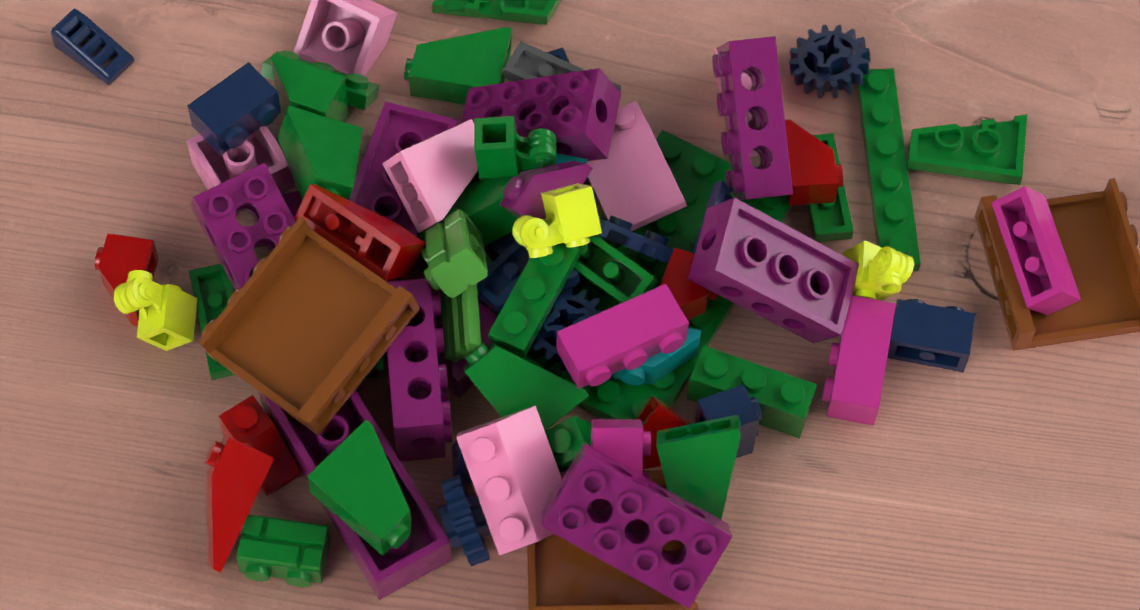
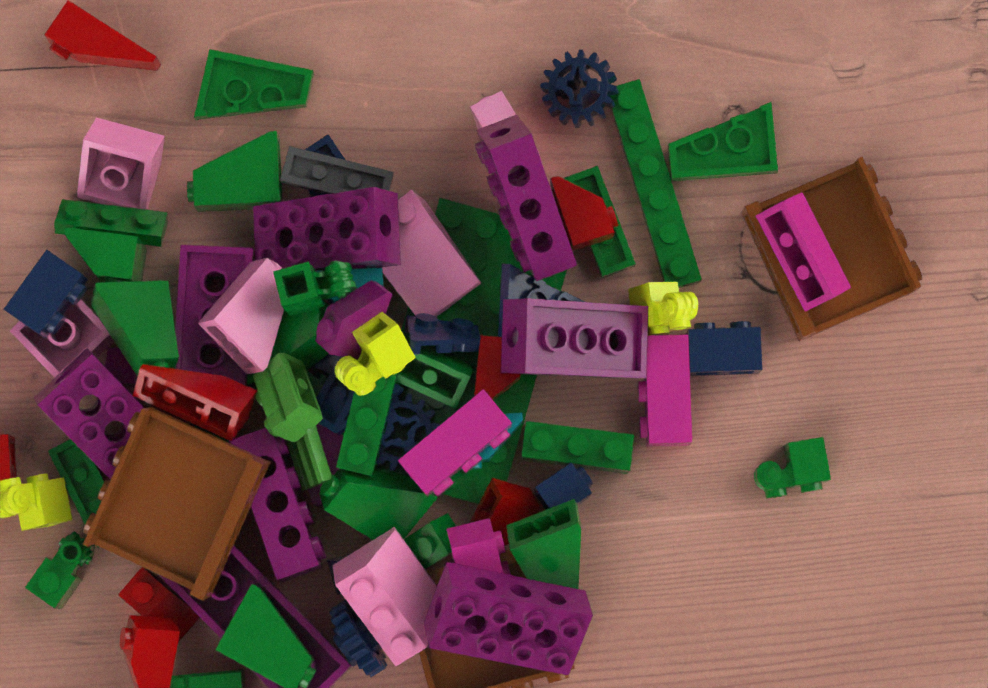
camera: 15 degrees left, 20 degrees up
(156, 390) = (56, 577): none -> green brick
(995, 472) = (804, 468): none -> green brick

